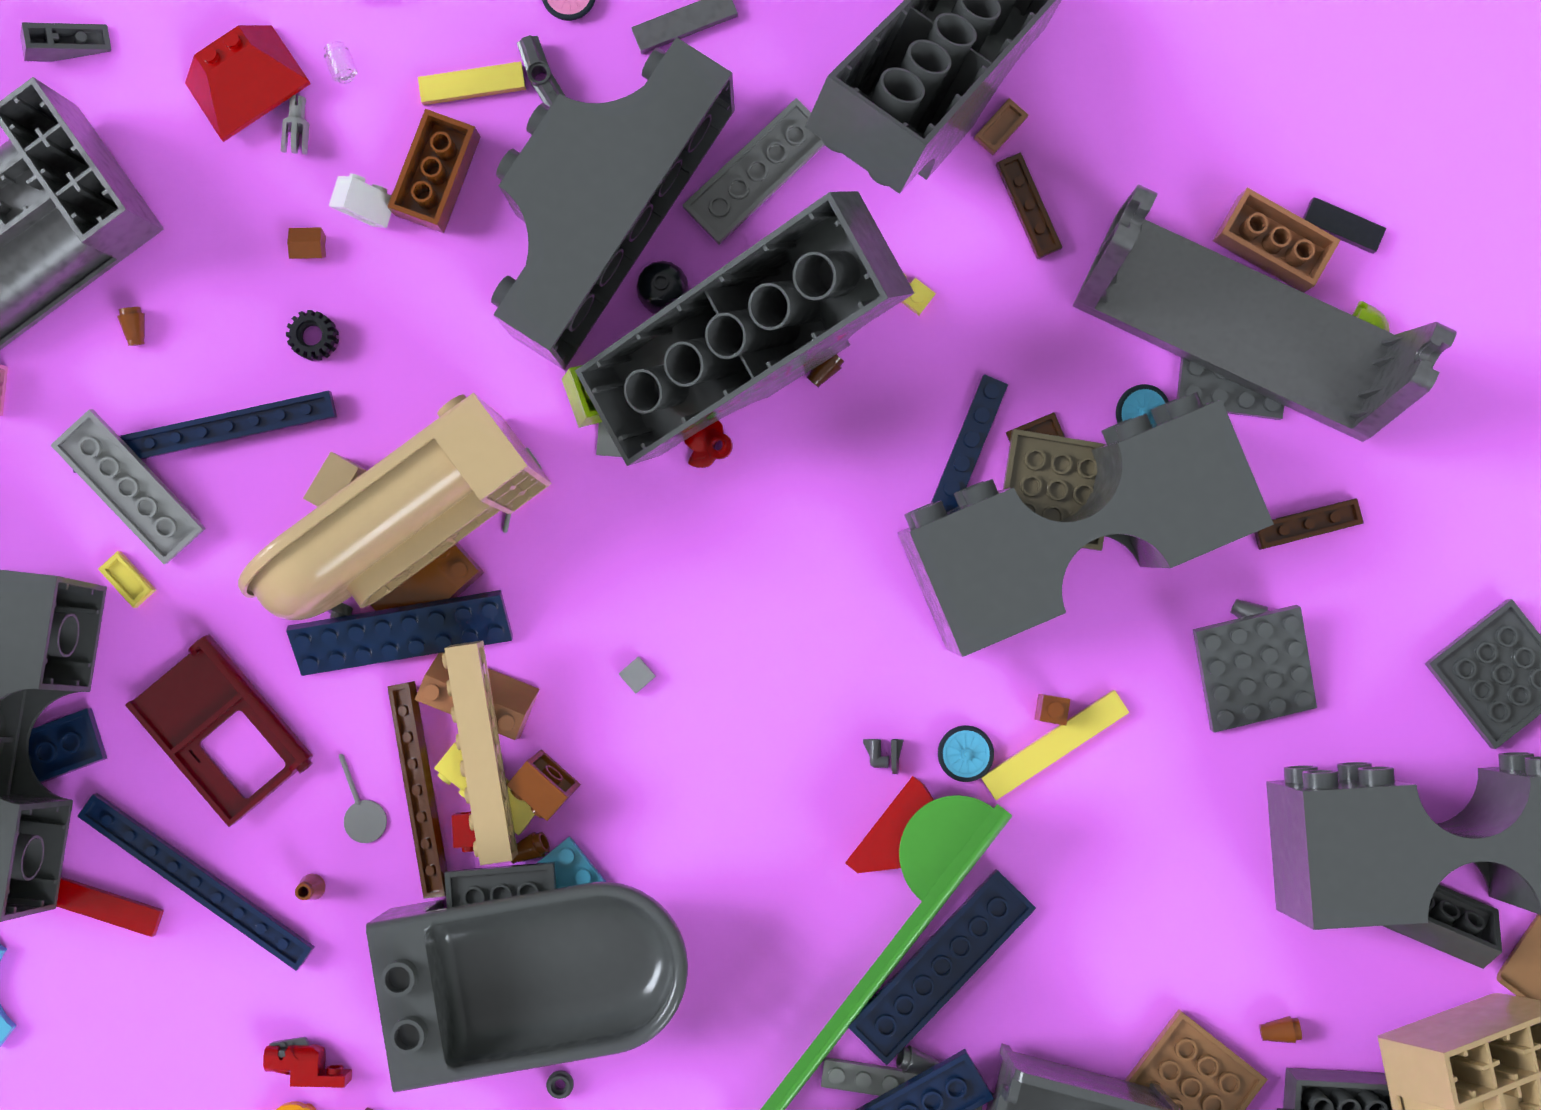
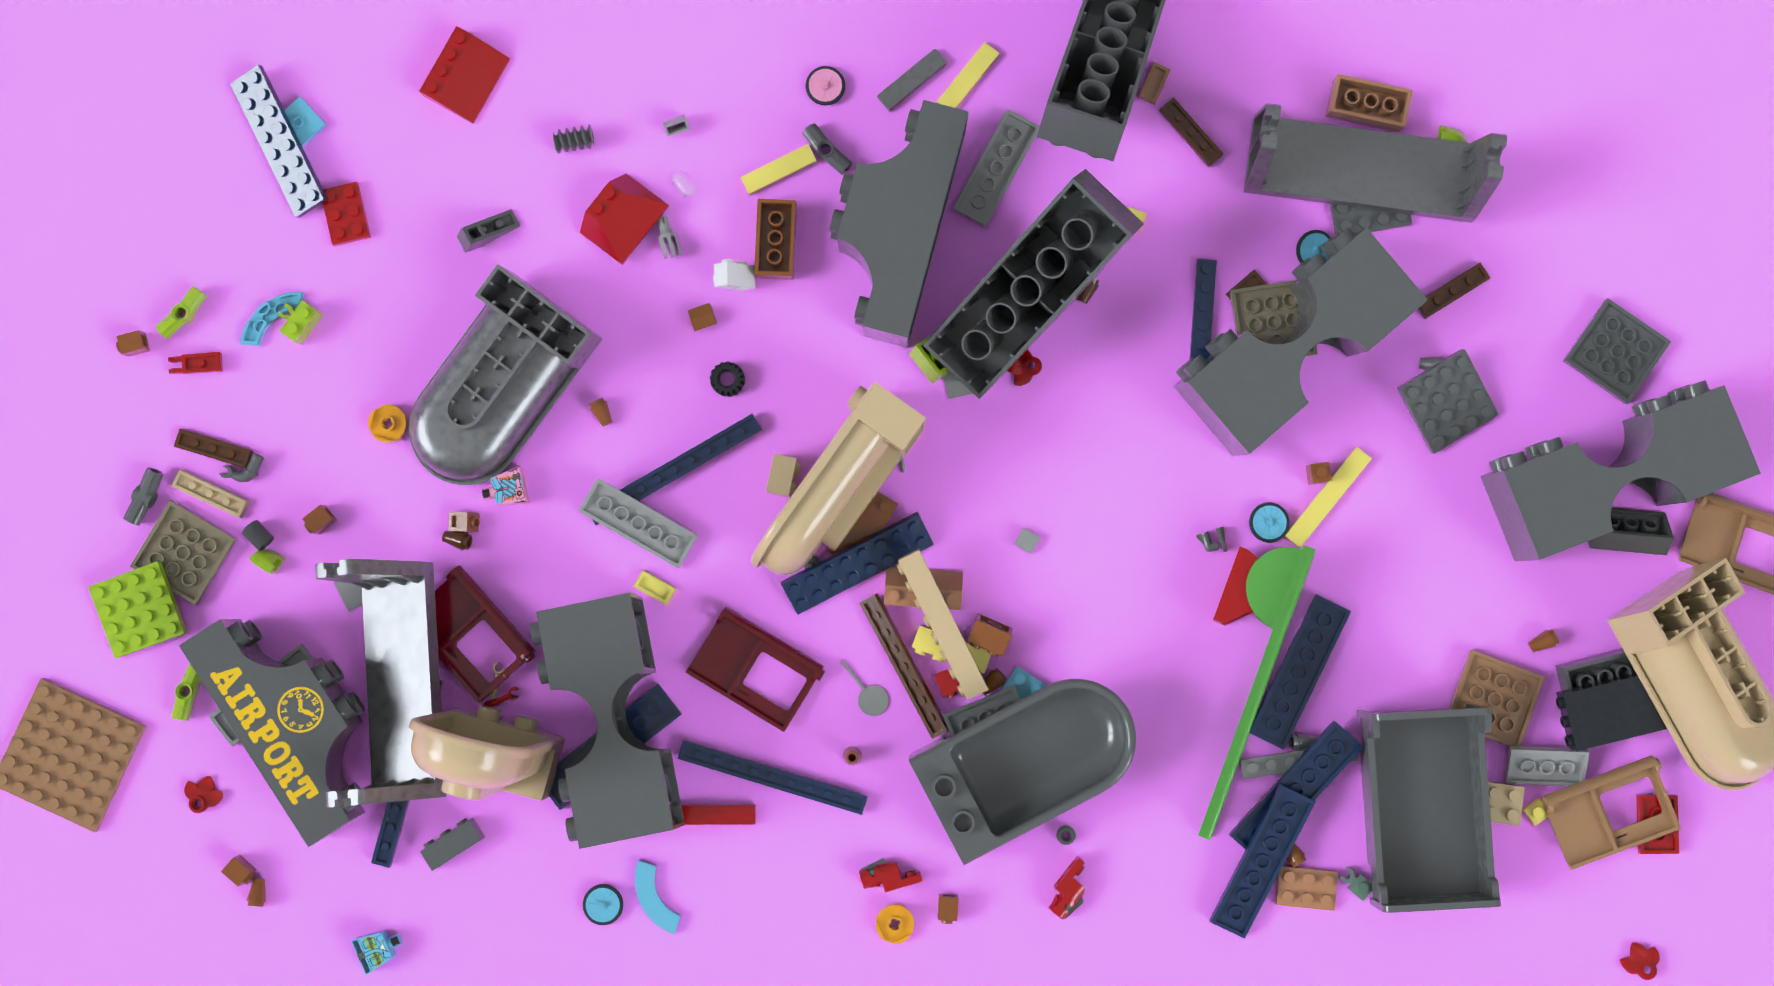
camera: 10 degrees left, 0 degrees up
(661, 285) = (957, 269): black cylinder -> none
(763, 40) = (969, 76): none -> light yellow tile
(1345, 225) = (1412, 77): black tile -> none

